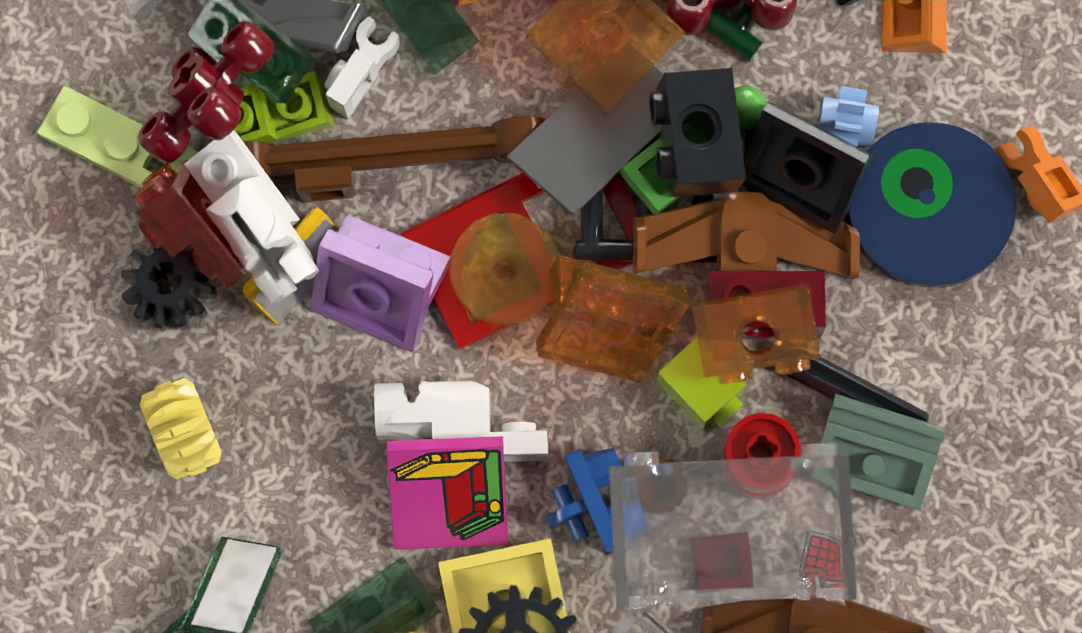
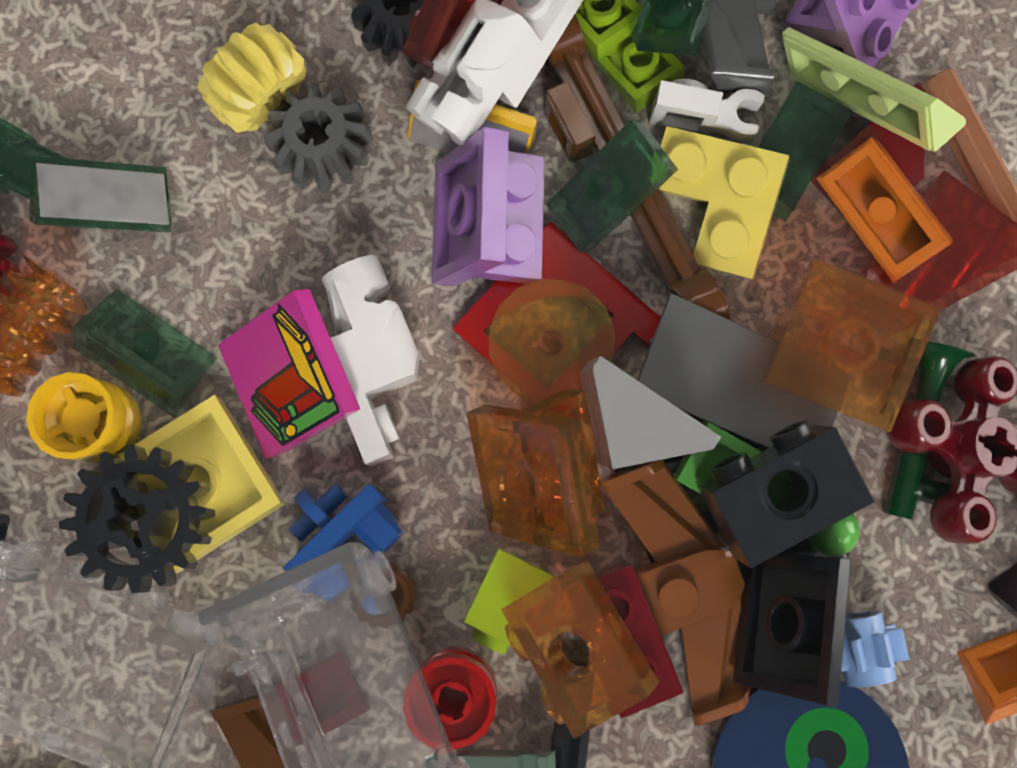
camera: 60 degrees right, 5 degrees up
(267, 380) = (301, 155): none -> dark grey gear
(396, 170) = (611, 186): none -> clear green plate
(436, 68) = (740, 192): none -> light yellow plate
(598, 224) = (634, 422): none -> light grey slope

